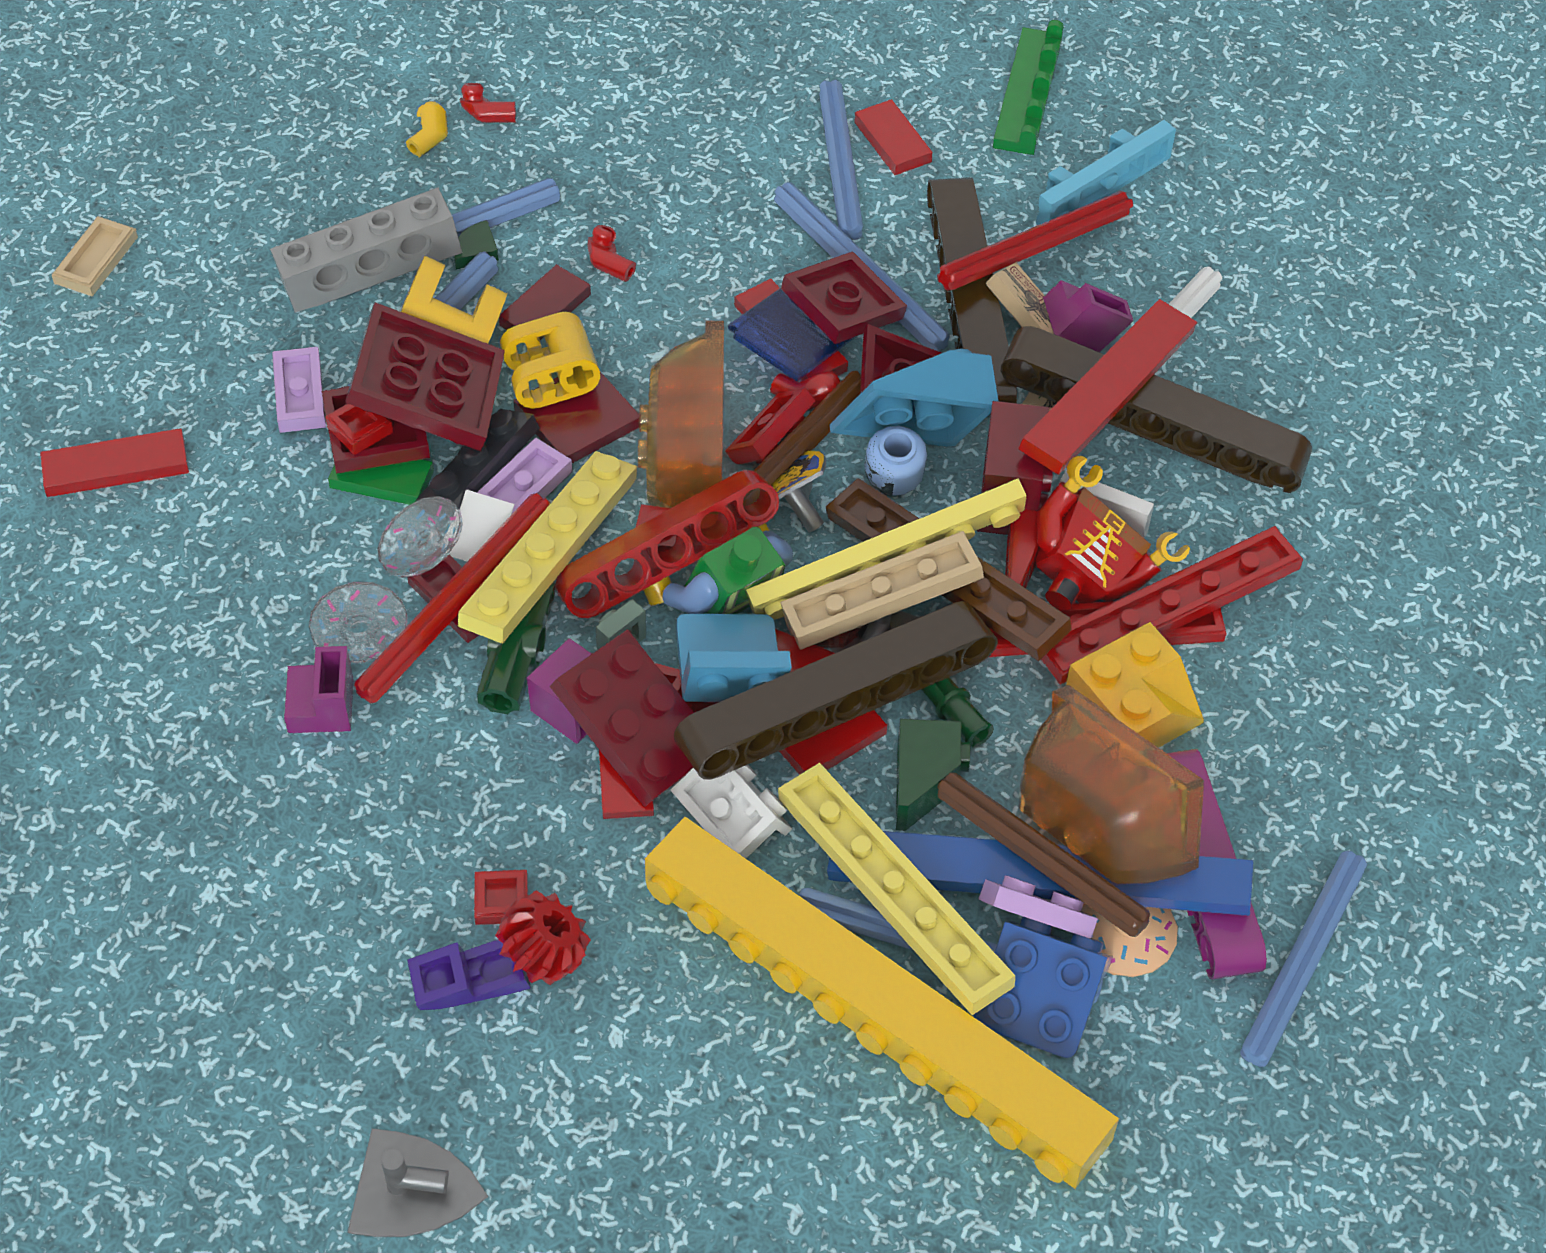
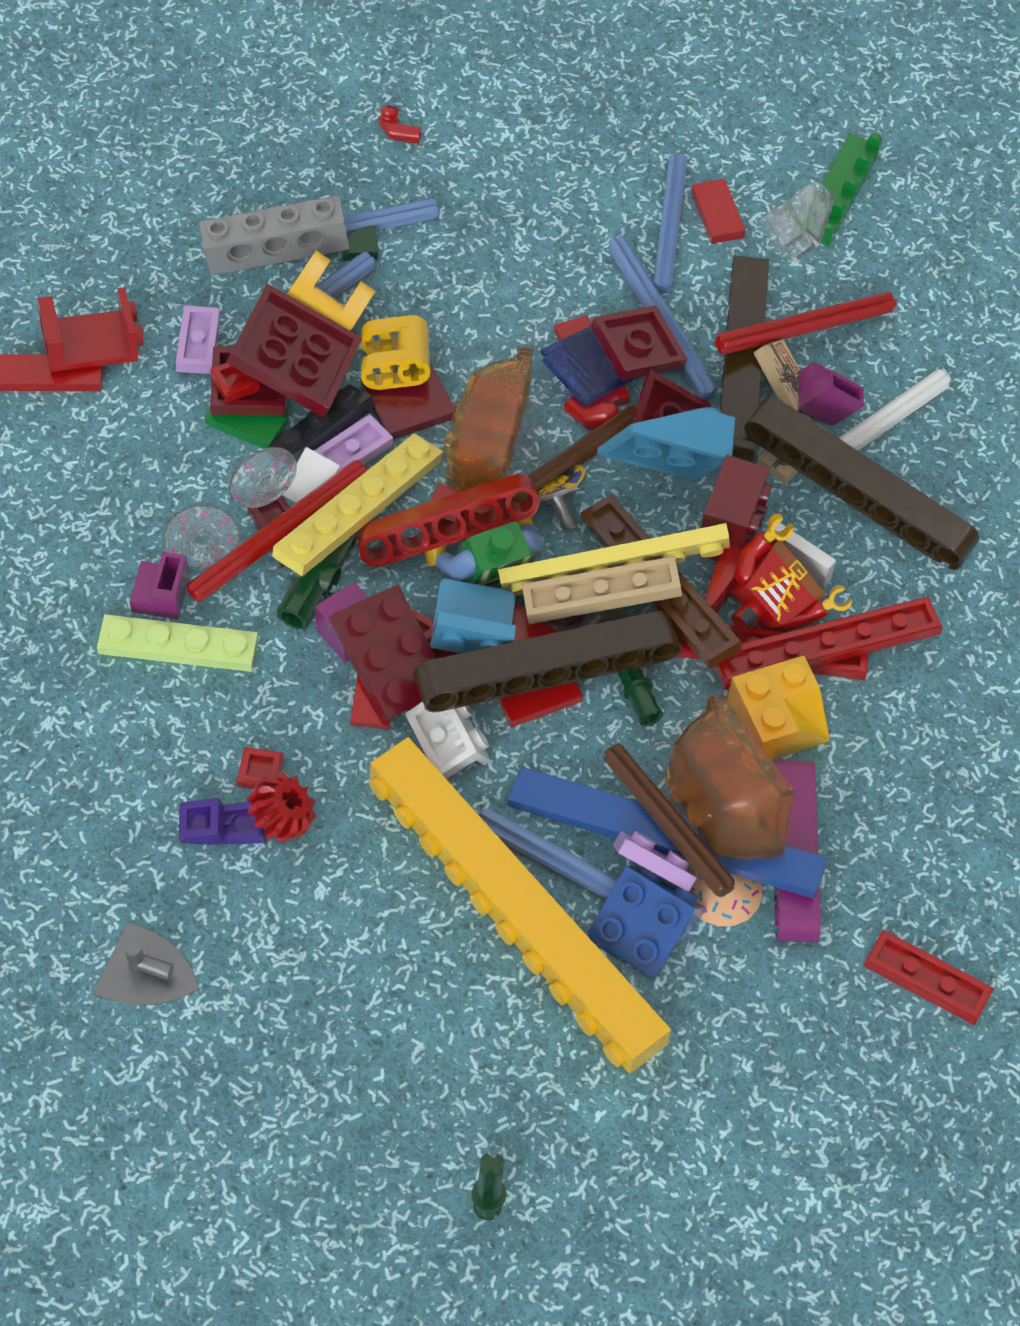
camera: 10 degrees right, 5 degrees up
(94, 256) = (66, 199): tan tile -> none
(164, 410) = (90, 338): none -> red panel
(356, 759) = (177, 643): none -> yellowish green plate
(433, 128) = (352, 138): yellow arm -> none
(551, 294) = (410, 298): dark red tile -> none
(604, 256) = (460, 270): red arm -> none
(629, 616) = (404, 574): sand green plate -> none
(770, 426) = (554, 438): red plate -> none
(895, 460) = (643, 485): light blue head -> none
(897, 889) = (552, 823): light yellow plate -> none
(925, 757) = (603, 725): dark green slope -> none
(996, 129) = (799, 222): none -> clear slope
(1107, 387) = (822, 459): red tile -> none
(1126, 160) = (901, 267): medium azure hinge -> none
(1303, 959) = (851, 939): medium blue axle -> none
(1412, 986) = (928, 977): none -> red tile

